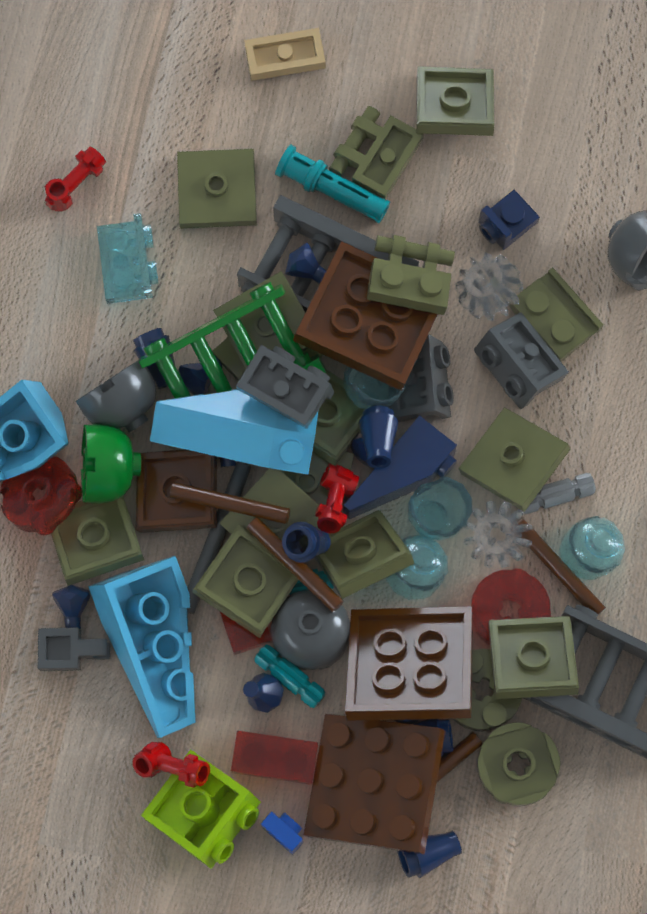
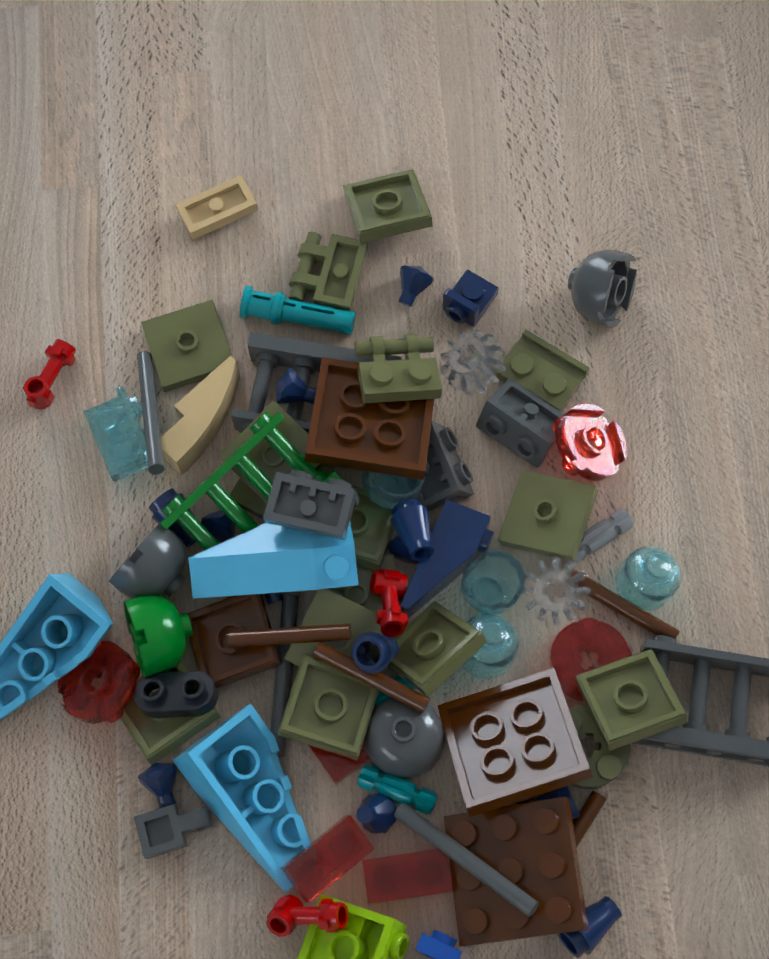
camera: 15 degrees left, 5 degrees down
(106, 527) = (173, 695): none -> black plate
(160, 247) = (150, 413): none -> dark grey bar
(206, 719) = (327, 858): none -> clear red plate
(208, 264) = (200, 416): none -> tan slope
(332, 758) = (467, 860): none -> dark grey bar
(457, 187) = (413, 281): none -> dark blue rock
(506, 785) = (642, 833): olive plate -> none
(559, 400) = (577, 455): none -> clear red plate

